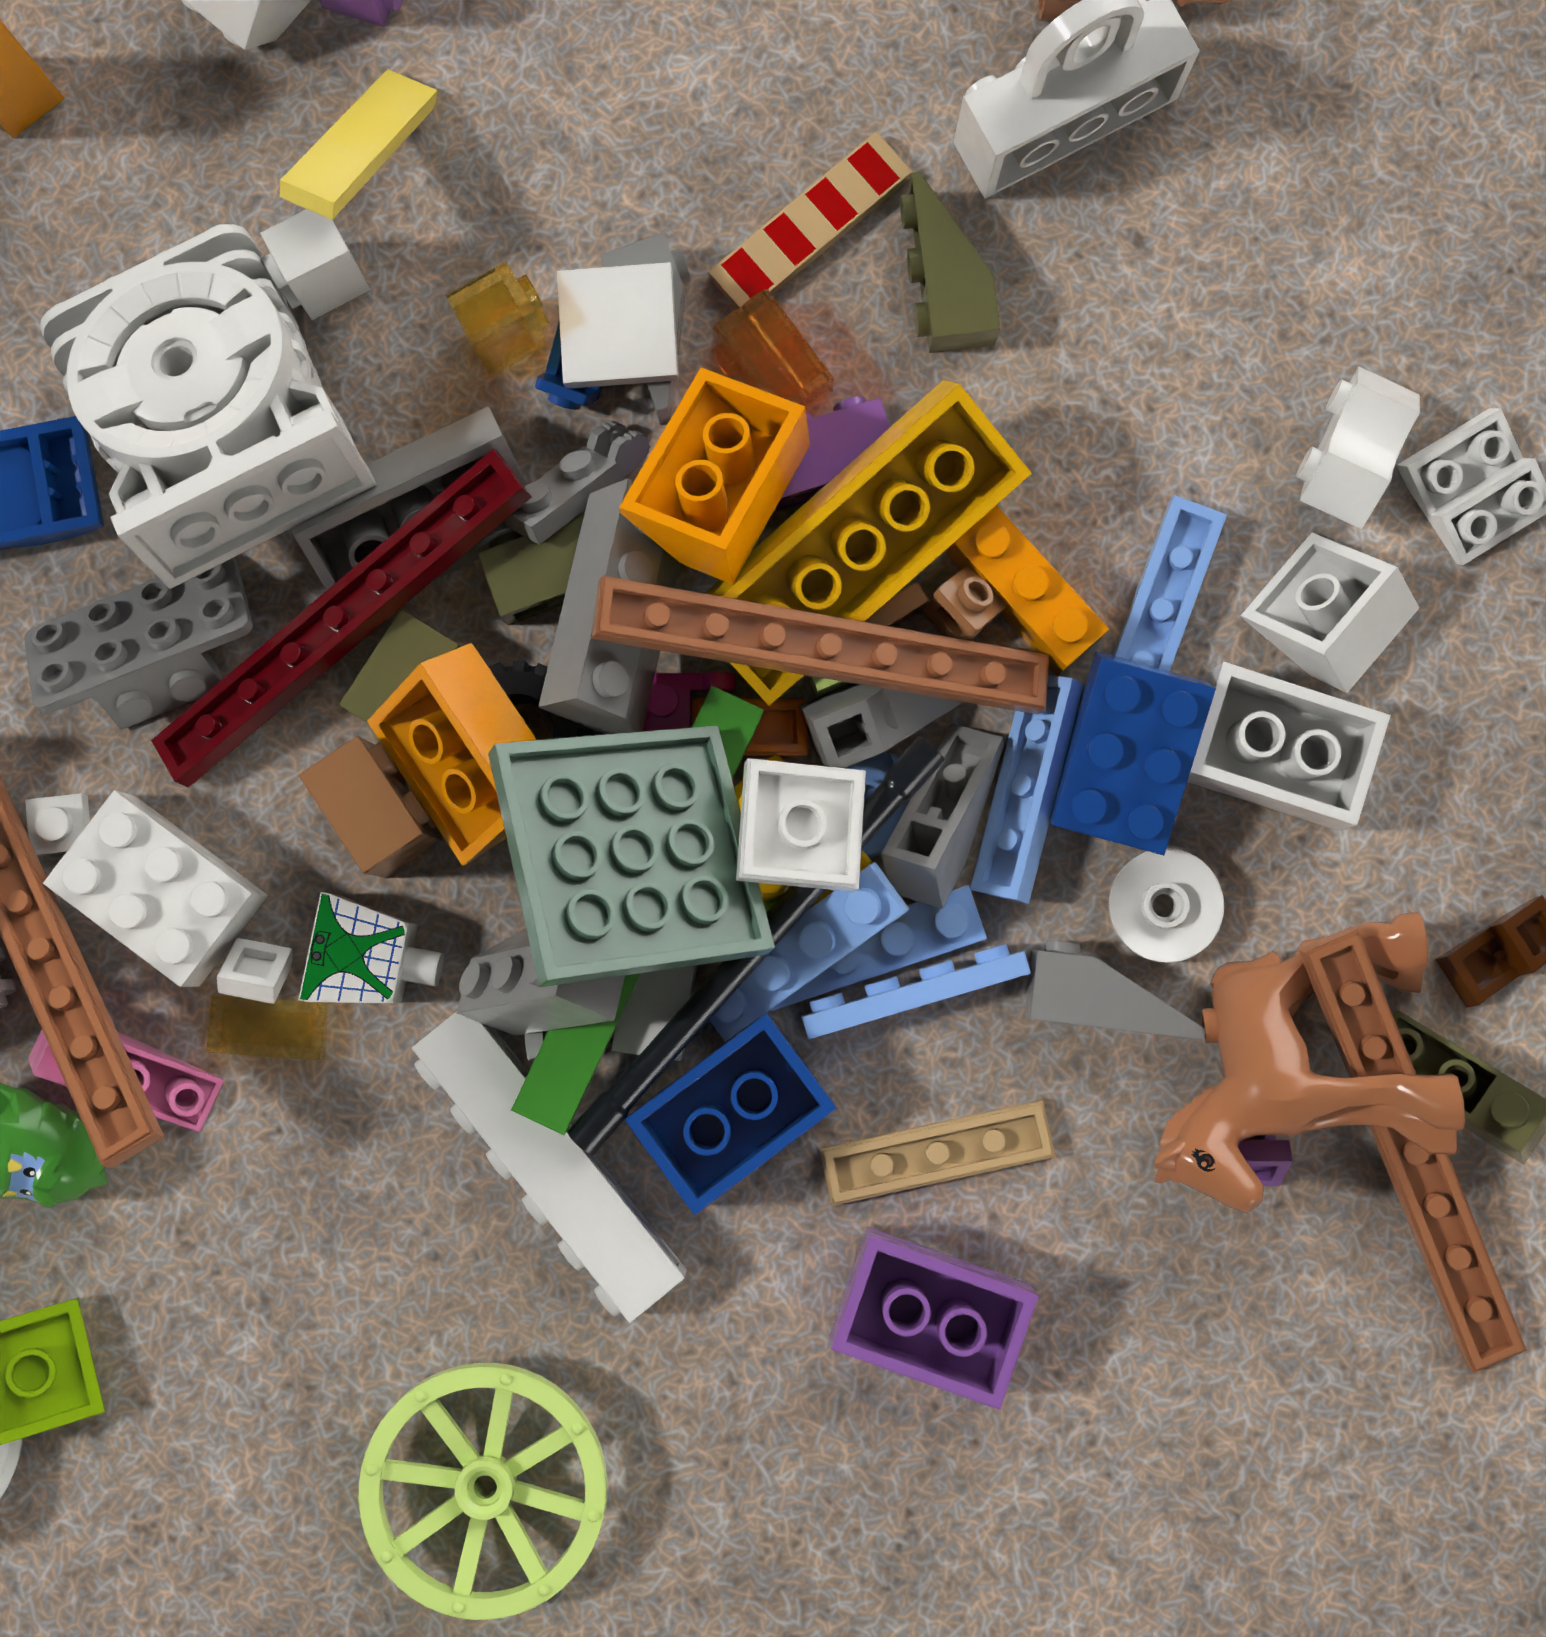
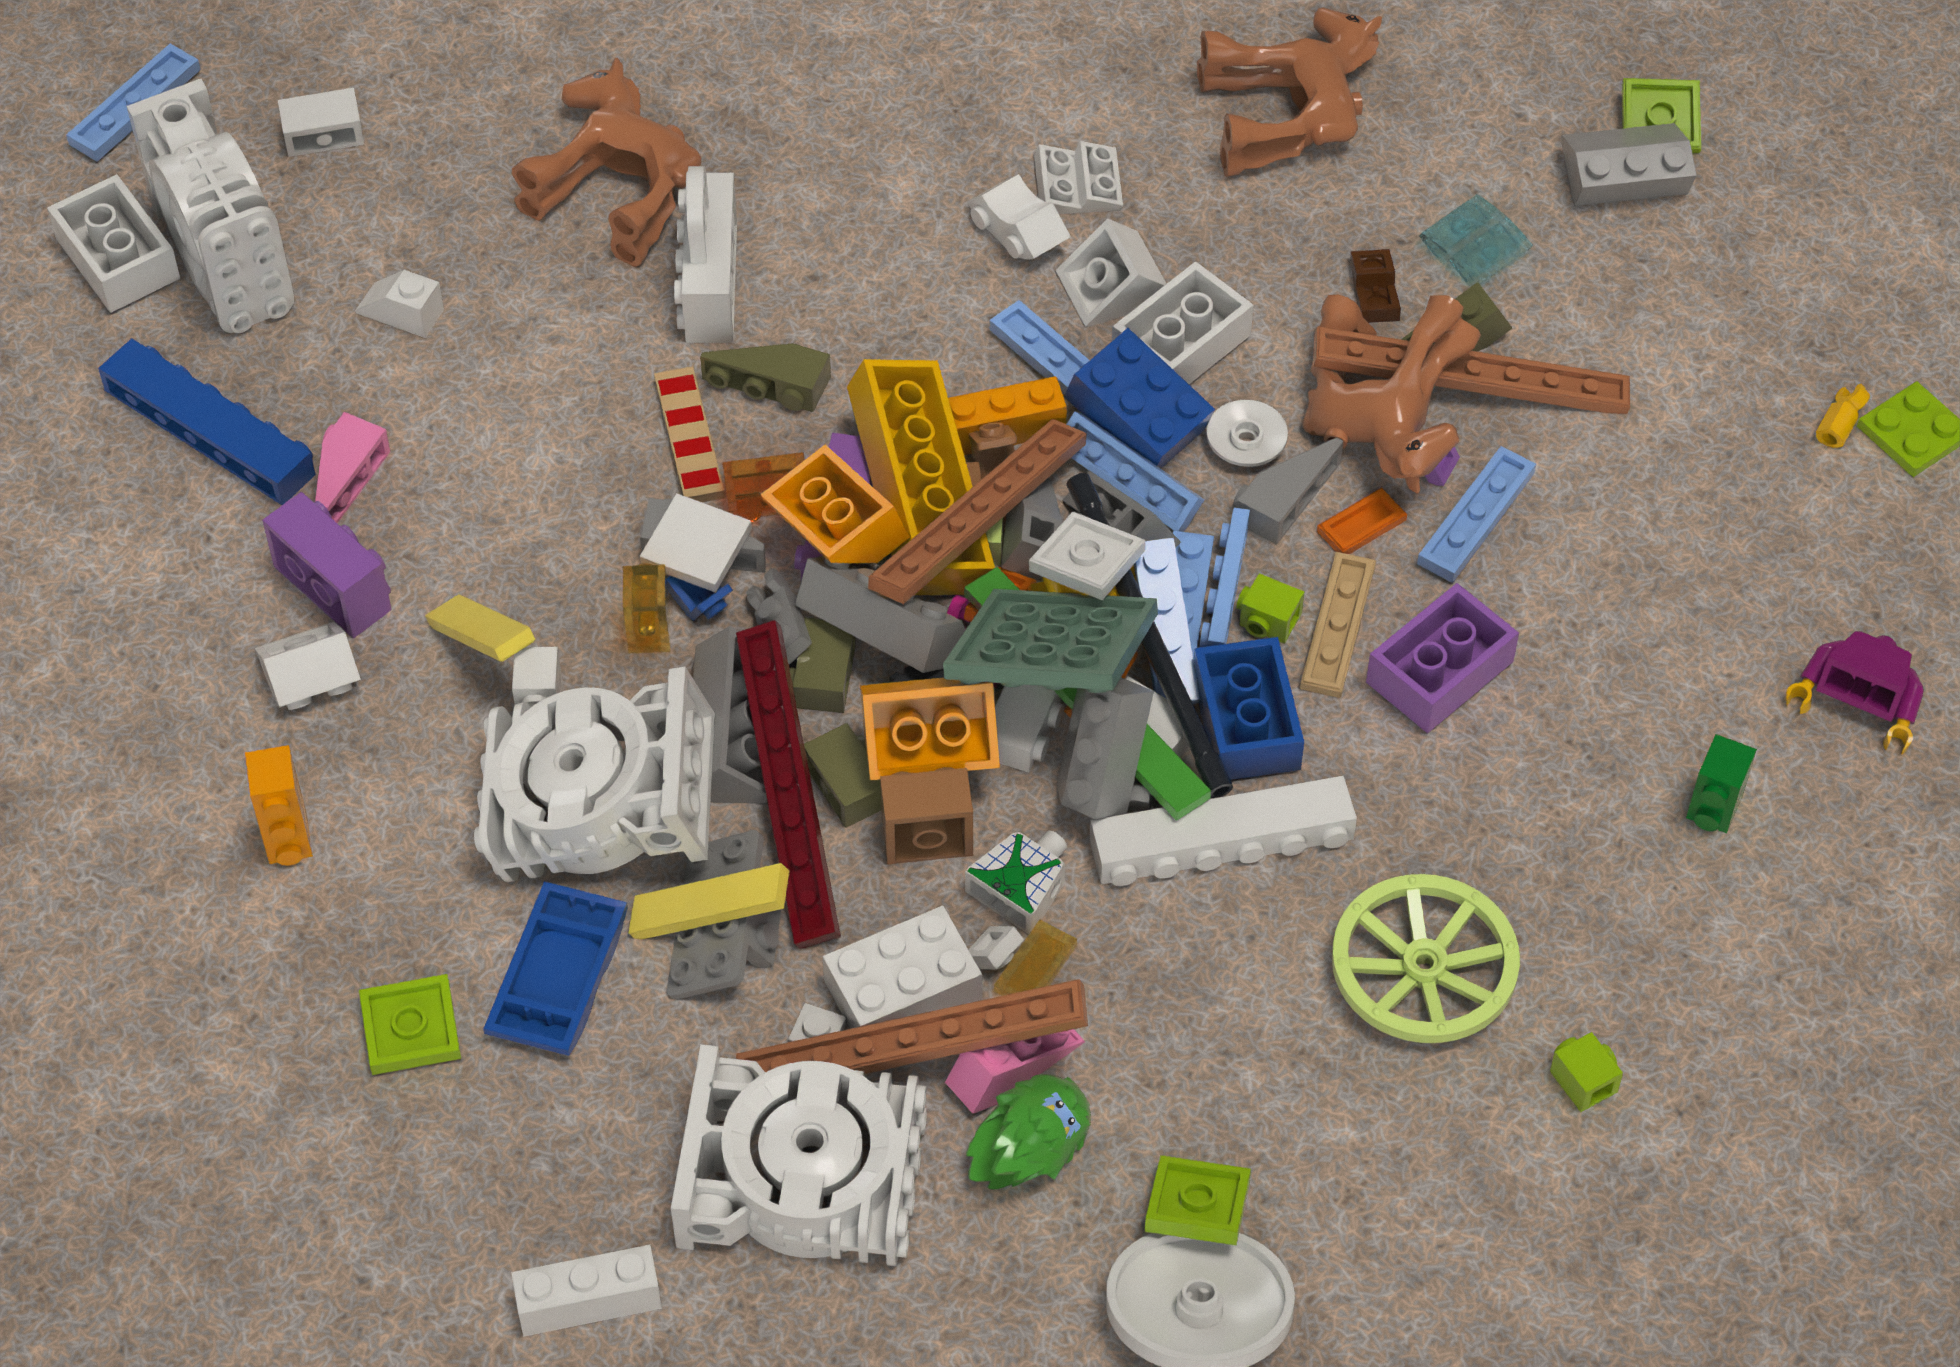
camera: 65 degrees left, 30 degrees down
(122, 627) = (709, 901): none -> light yellow tile
(904, 1062) = (1270, 608): none -> lime brick
(1109, 1110) = (1362, 522): none -> orange tile
(1195, 1251) = (1476, 514): none -> light blue plate

